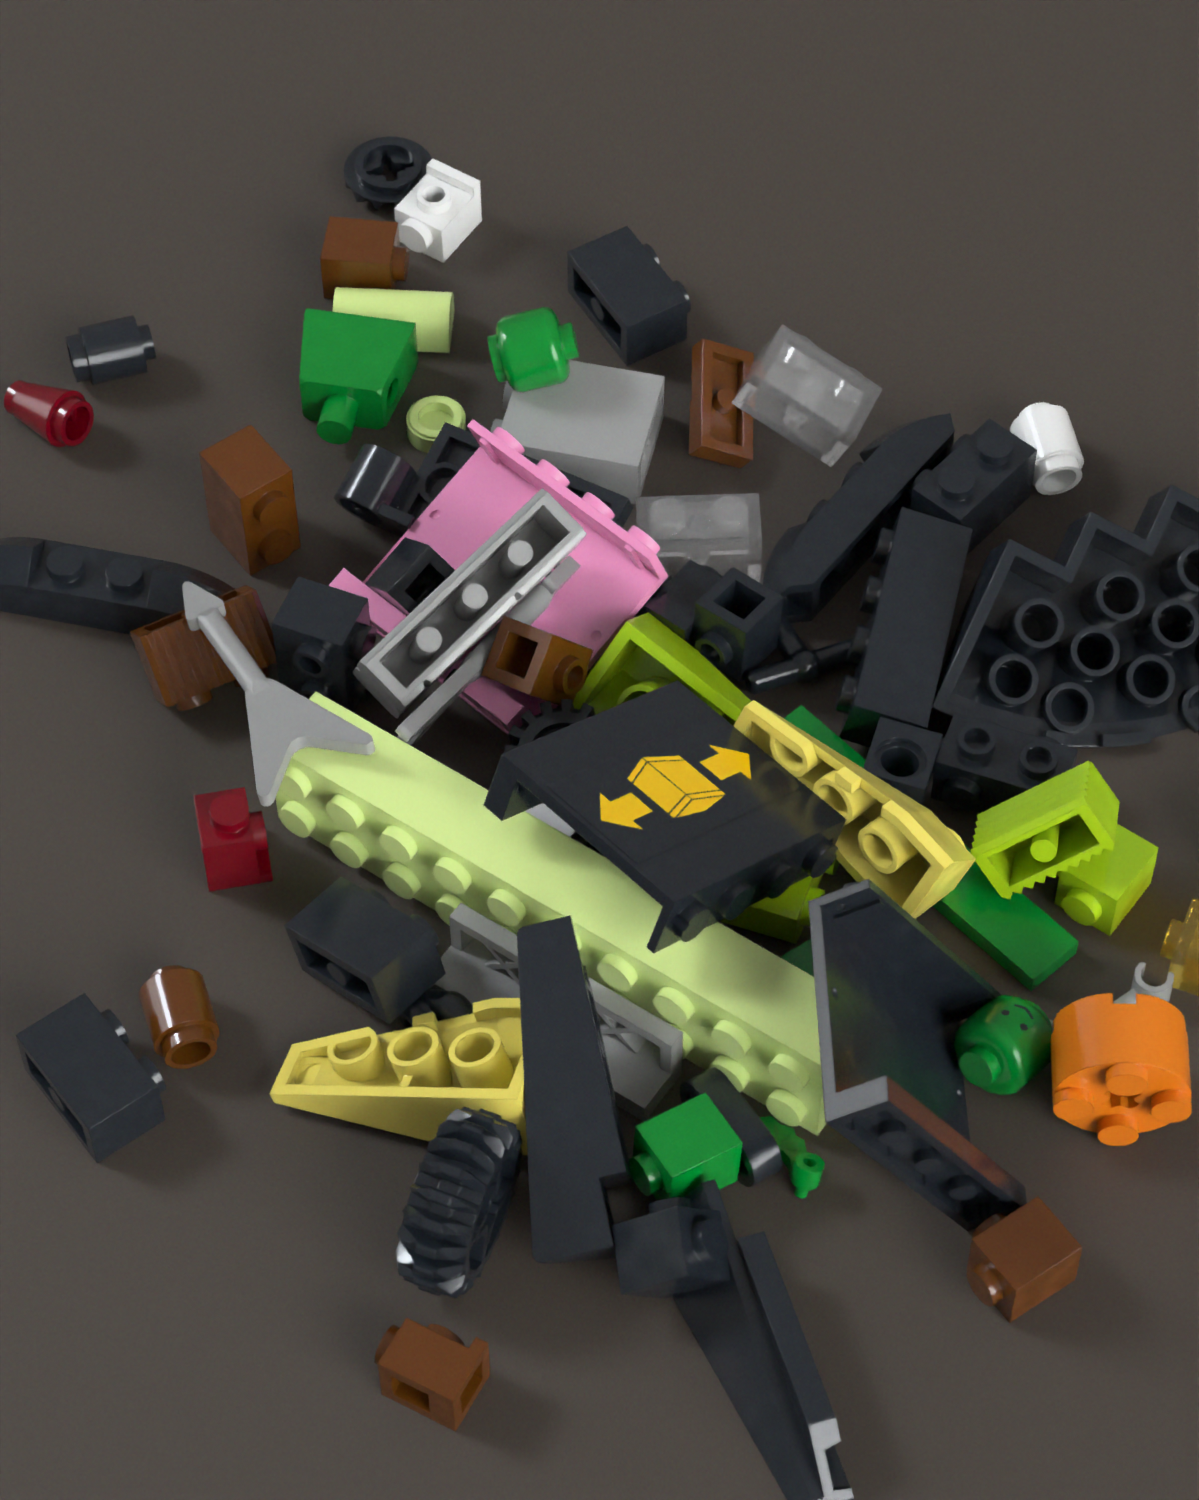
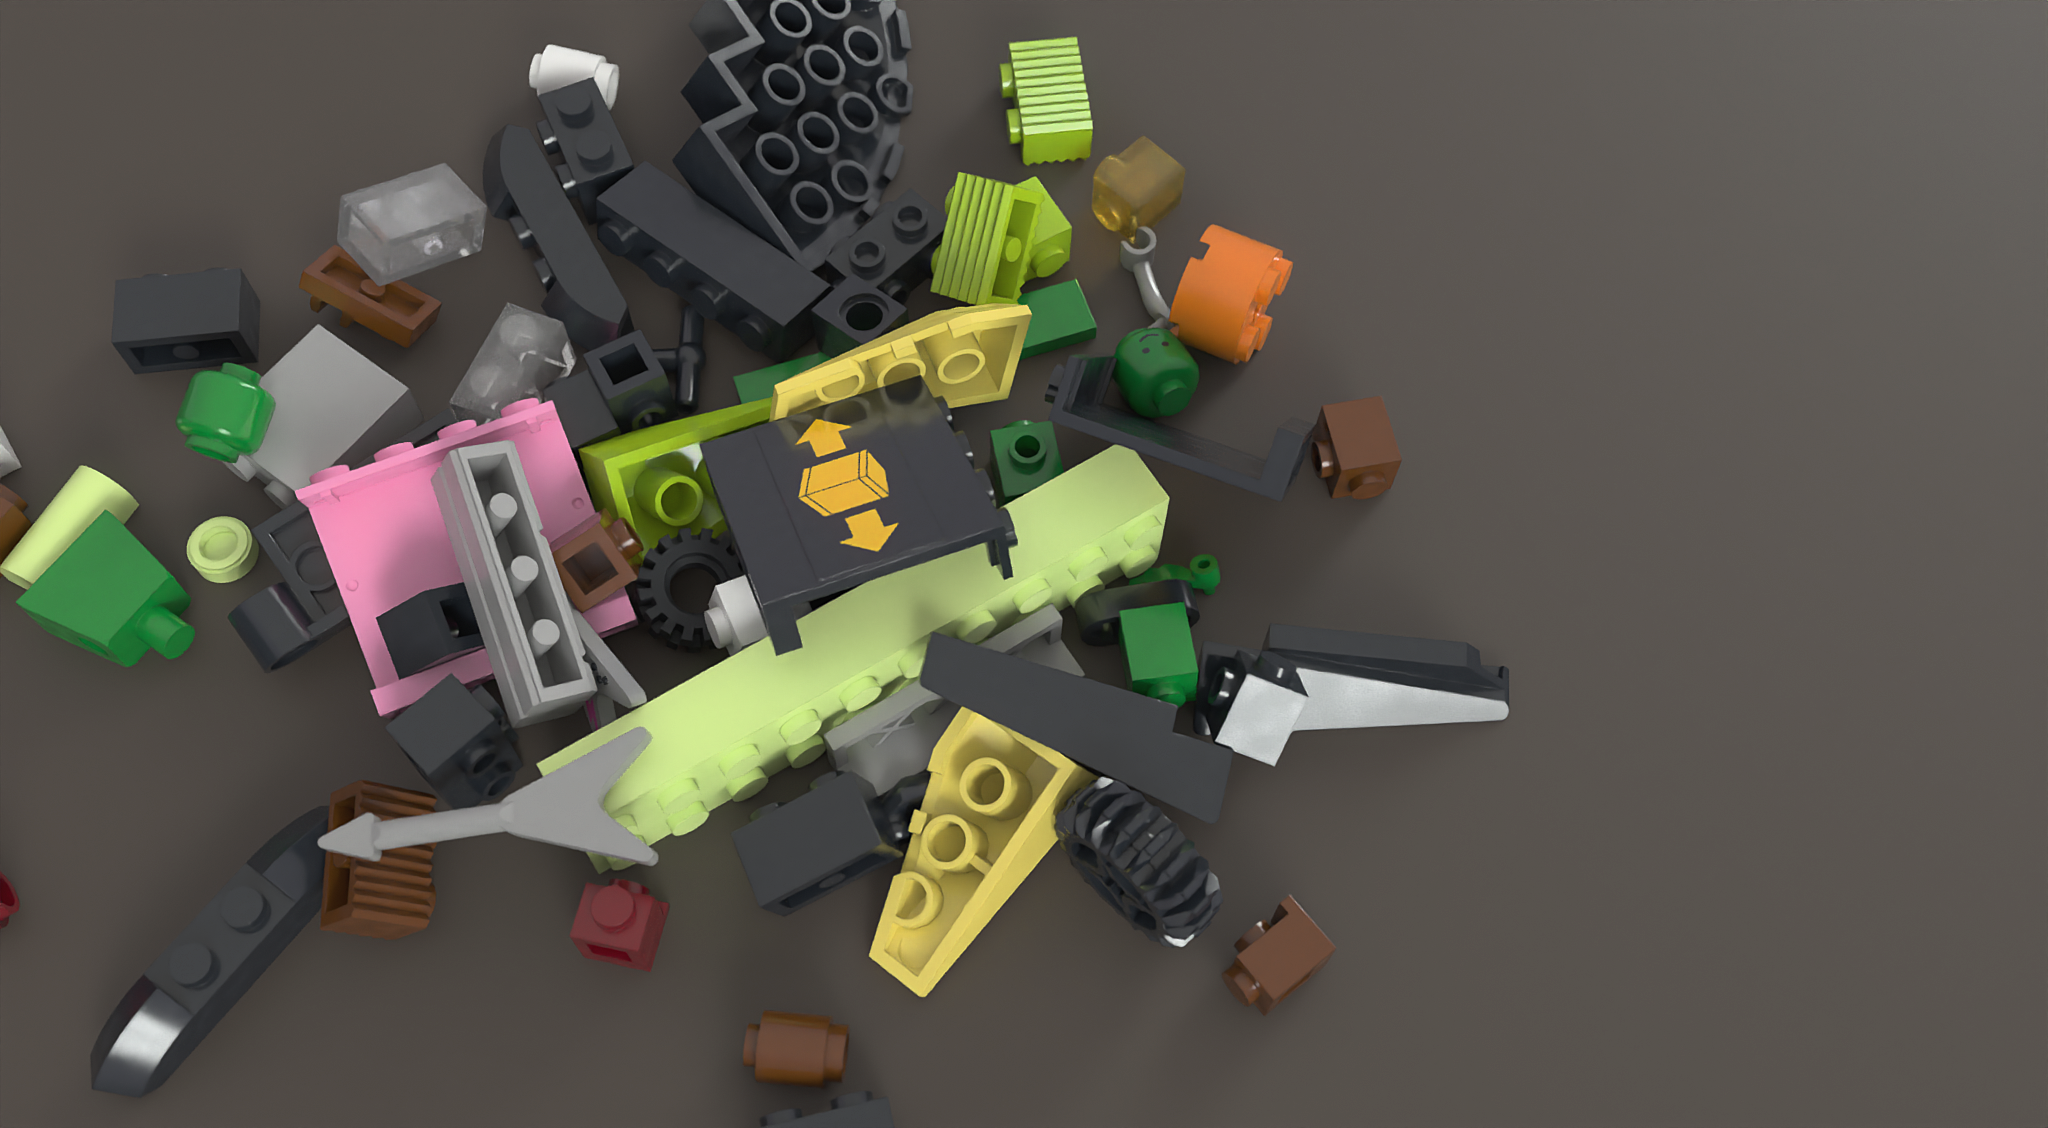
camera: 70 degrees left, 10 degrees up
(250, 500) = (228, 746): reddish brown brick -> none

